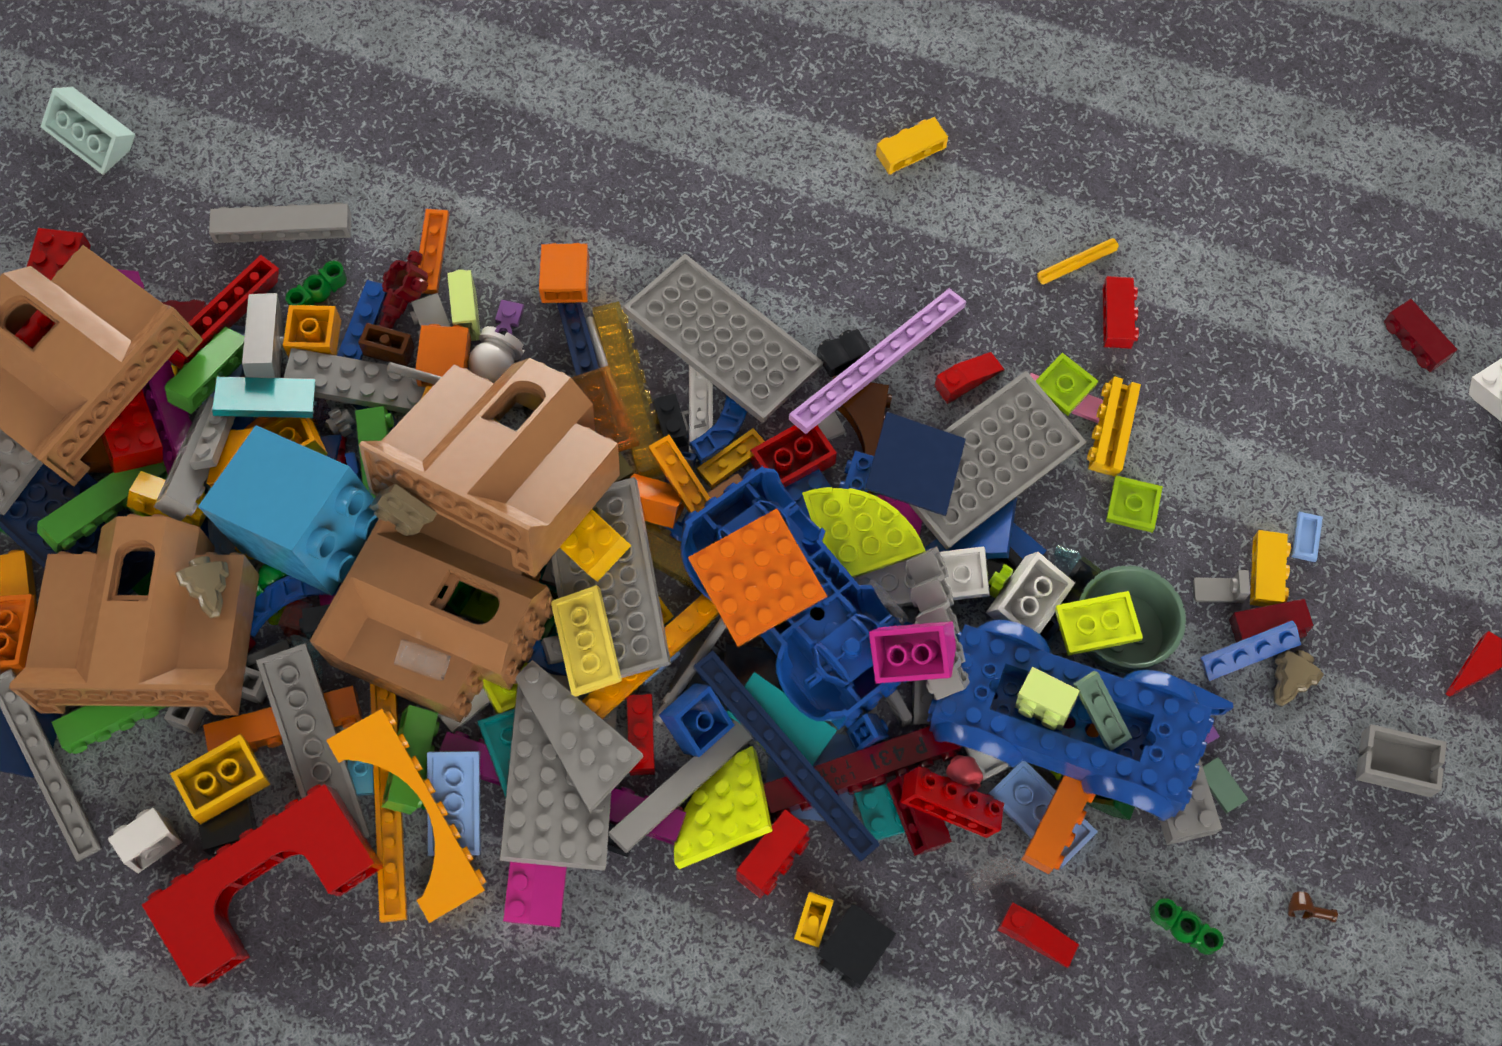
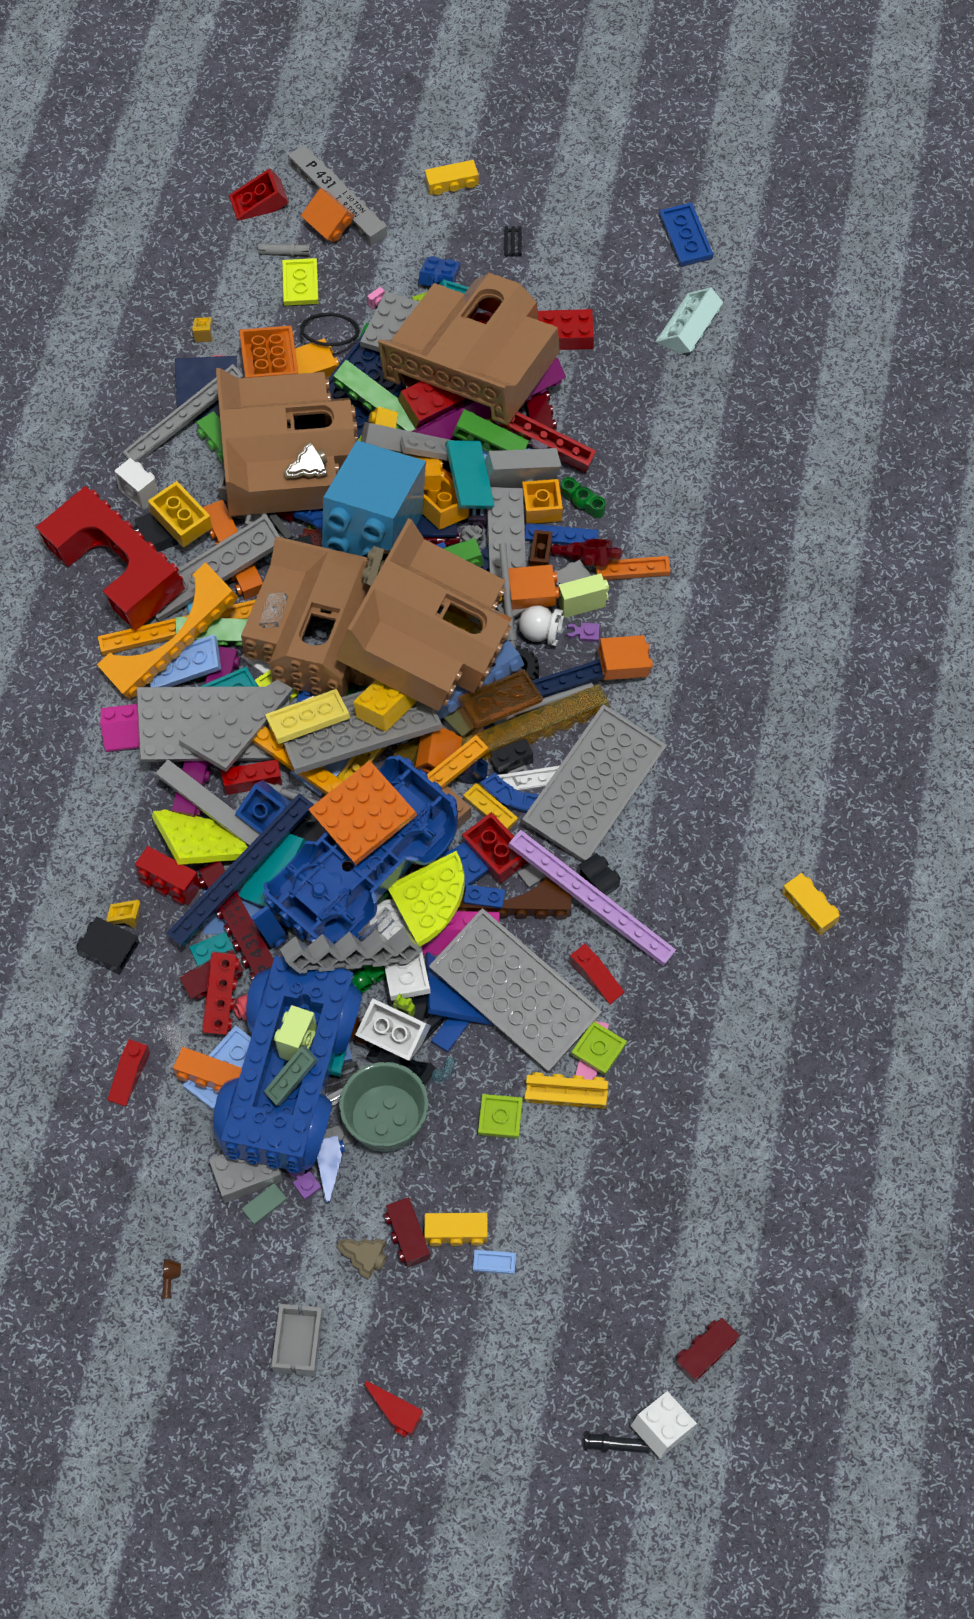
camera: 85 degrees right, 5 degrees down
(280, 223) = (635, 463): light grey brick -> none
(913, 652) = (313, 922): dark pink slope -> none
(915, 464) = (494, 929): dark blue piece -> none
(1077, 261) = (726, 1052): yellow axle -> none
(1098, 623) = (370, 1074): neon yellow plate -> none
(1119, 312) = (679, 1089): red brick -> none
(1198, 930) = (147, 1171): green piece -> none
(1222, 589) = (433, 1190): light grey bracket -> none
(1250, 650) = (378, 1214): plate -> none

